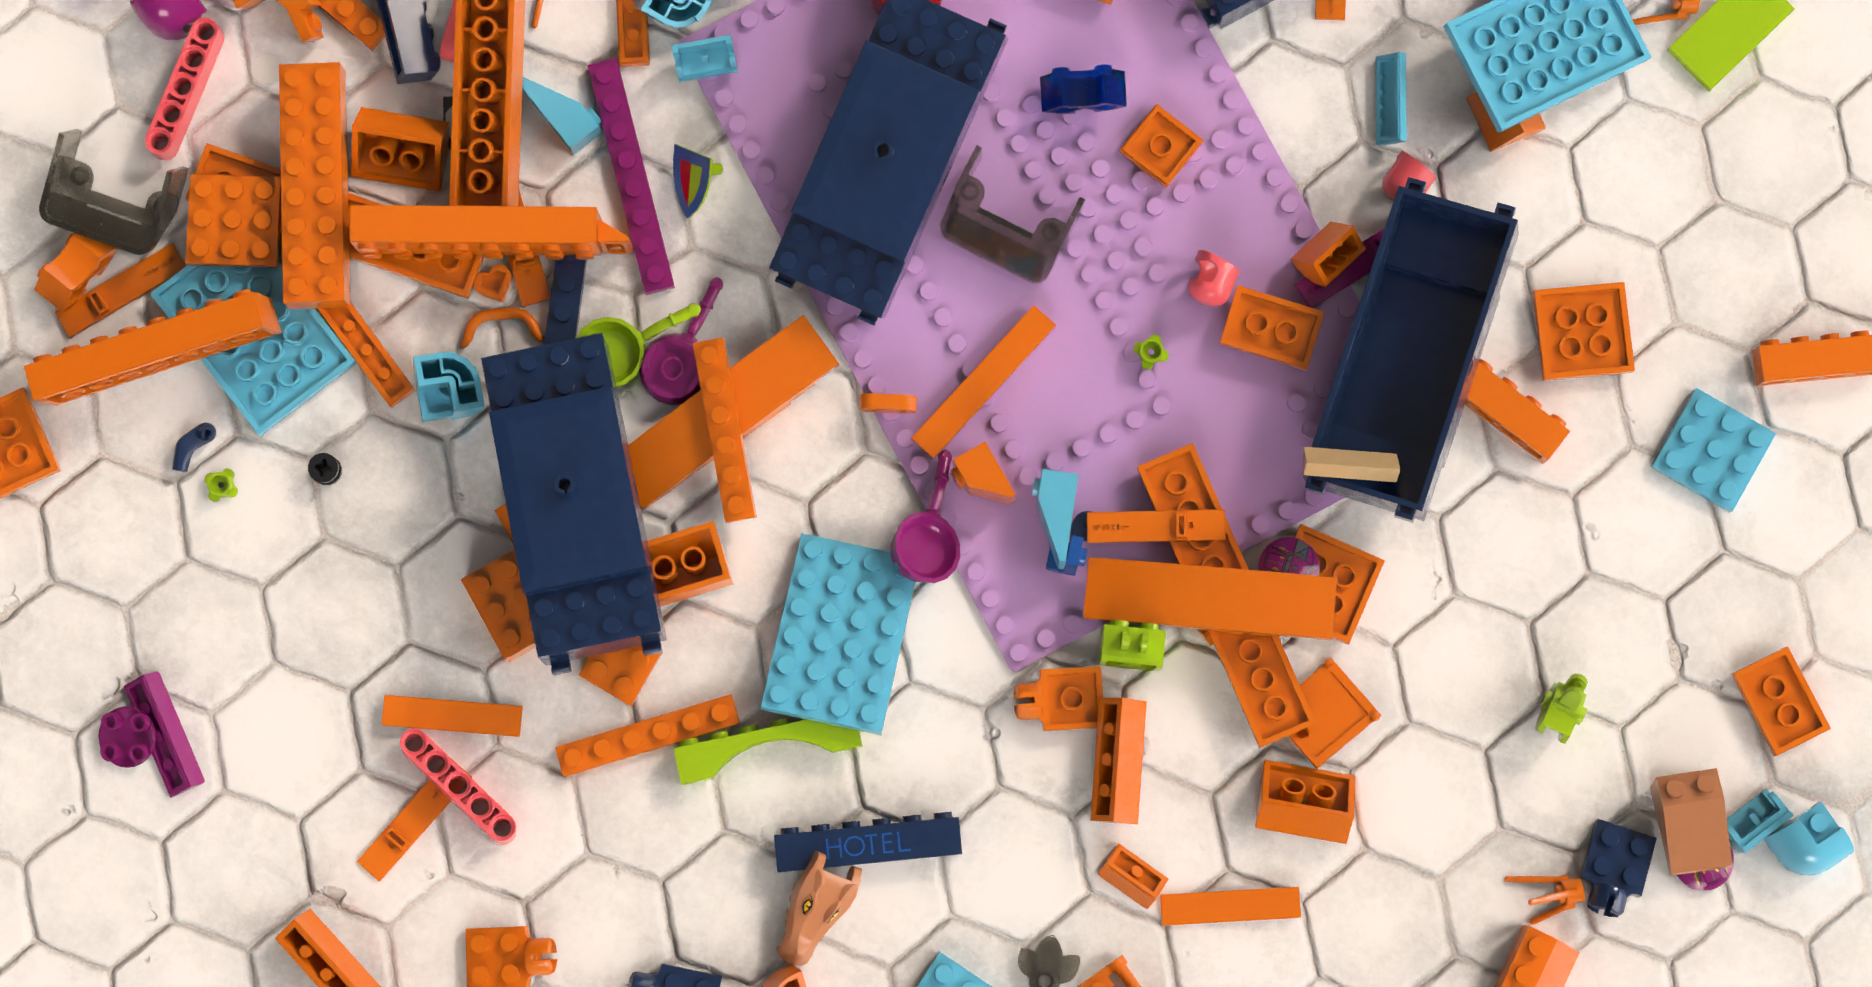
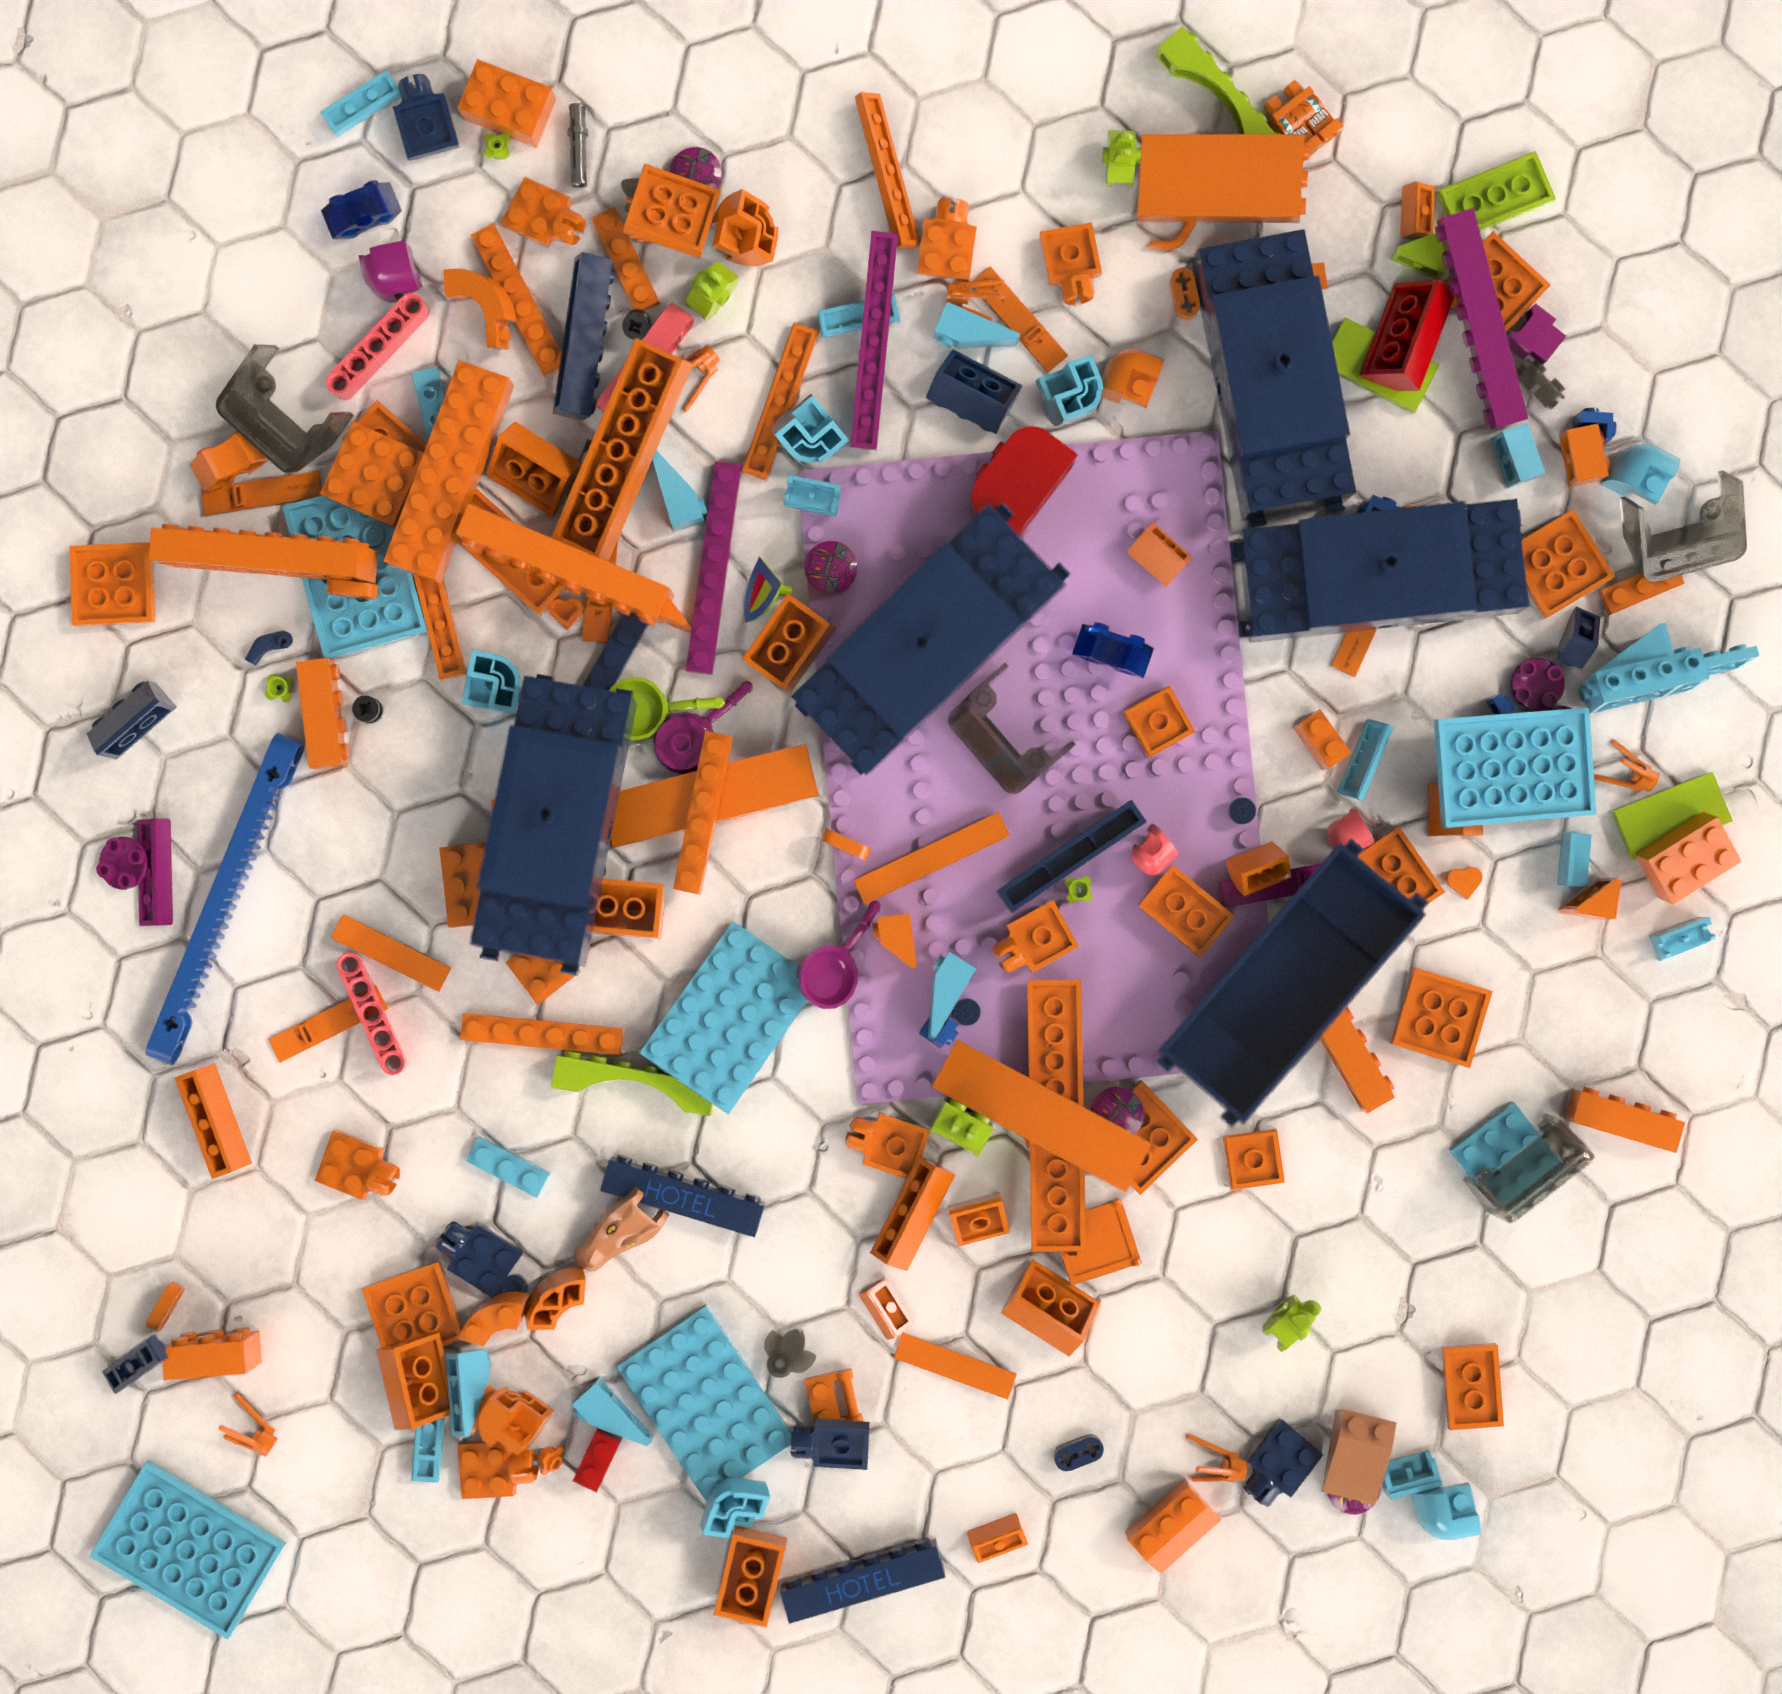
camera: 25 degrees right, 5 degrees up
(76, 581) = (130, 720): none -> slope
(249, 905) = (166, 1041): none -> blue gear
(259, 348) = (352, 589): none -> orange beam
(261, 119) = (429, 394): none -> medium azure plate
(278, 492) = (322, 713): none -> orange brick
(500, 314) = (559, 639): orange animal -> none
(668, 891) = (508, 1166): none -> medium azure plate
(743, 218) = (789, 643): none -> orange brick
(754, 124) = (830, 567): none -> magenta dish
(1127, 421) = (1035, 939): none -> orange plate
(1128, 319) = (1071, 856): none -> dark blue brick
(1156, 526) = (1022, 1036): orange piece -> none
(1191, 740) = (978, 1219): none -> orange slope
(1286, 202) = (1241, 811): none -> dark blue tile
(1337, 96) = (1322, 739): none -> orange brick
(1350, 464) = (1201, 1059): tan slope -> none
(1404, 949) = (1076, 1446): none -> dark blue beam
(1452, 559) = (1253, 1159): none -> orange tile
(1472, 186) = (1401, 865): none -> orange plate
(1546, 182) = (1464, 881): none -> orange tile
(1650, 114) = (1574, 859): none -> medium azure panel
(1691, 148) = (1596, 901): none -> orange slope
(1740, 448) = (1531, 1172): none -> clear smoke windscreen
(1764, 63) = (1688, 857): none -> orange brick
(1795, 149) = (1682, 937): none -> medium azure hinge

